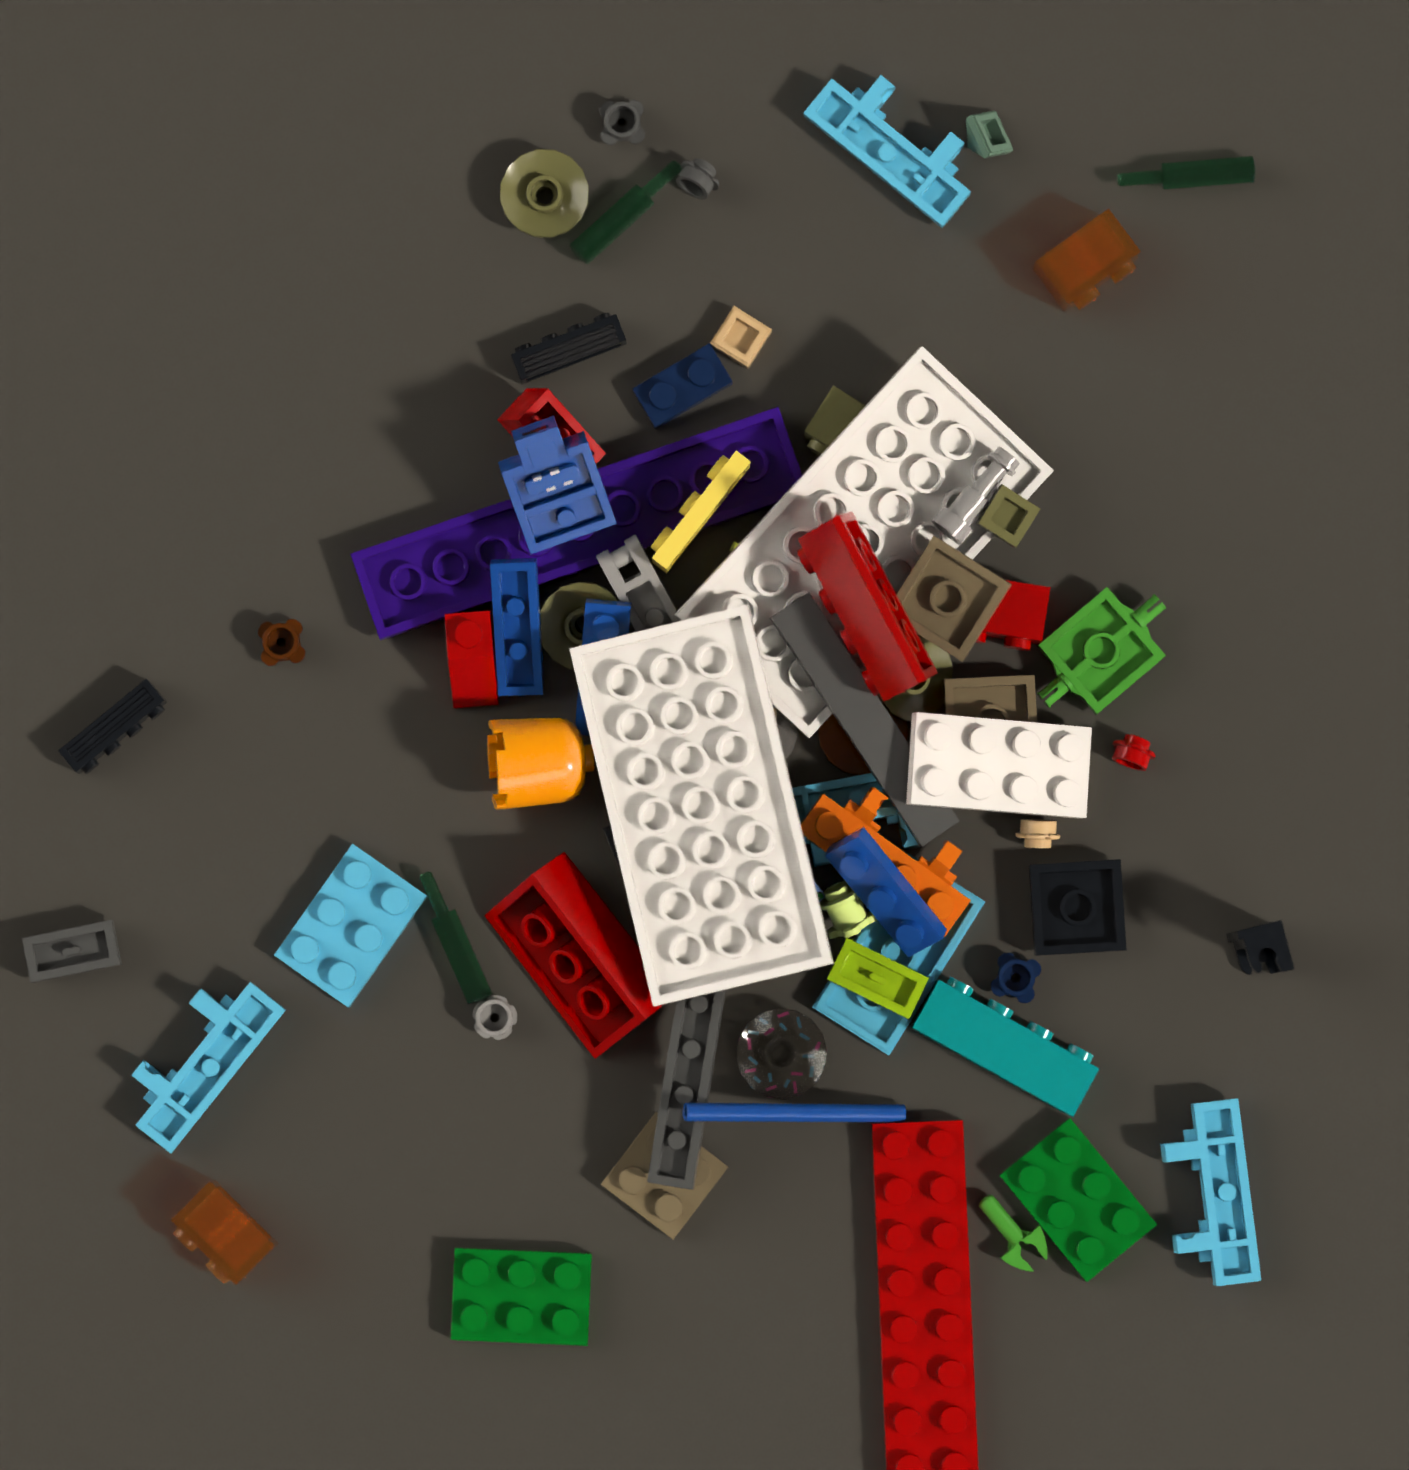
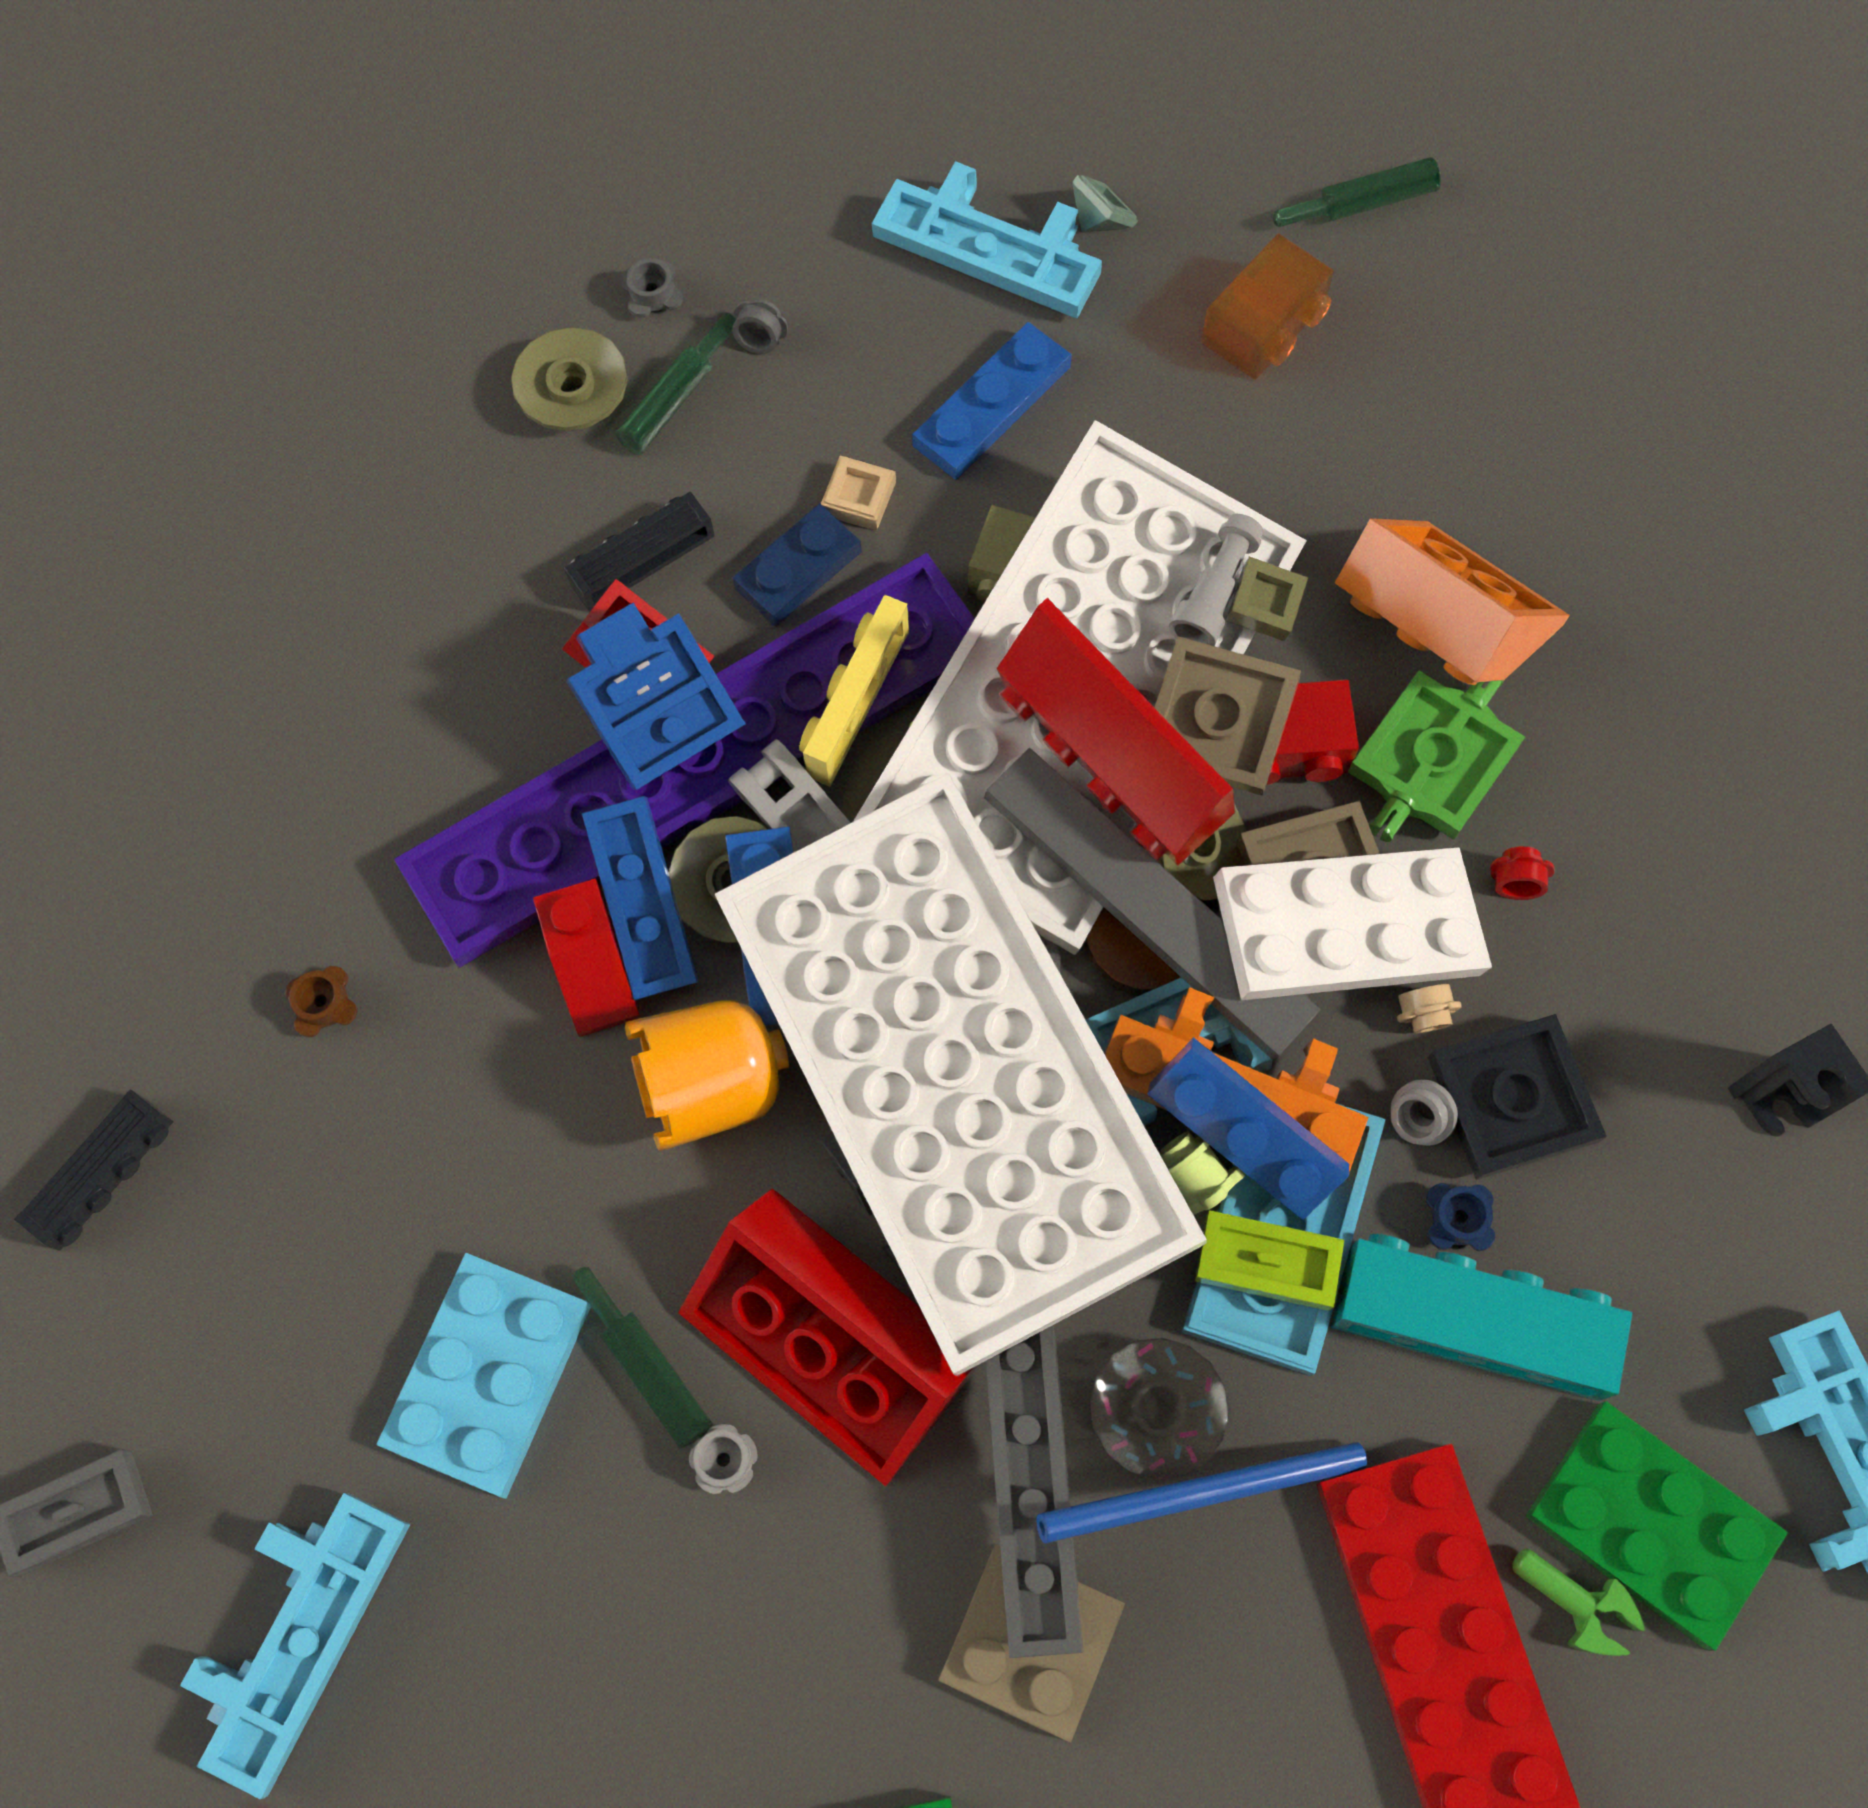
camera: 10 degrees left, 15 degrees down
(859, 283) = (991, 400): none -> blue plate
(1010, 904) = (1409, 1121): none -> light grey plate
(1144, 538) = (1447, 599): none -> orange slope

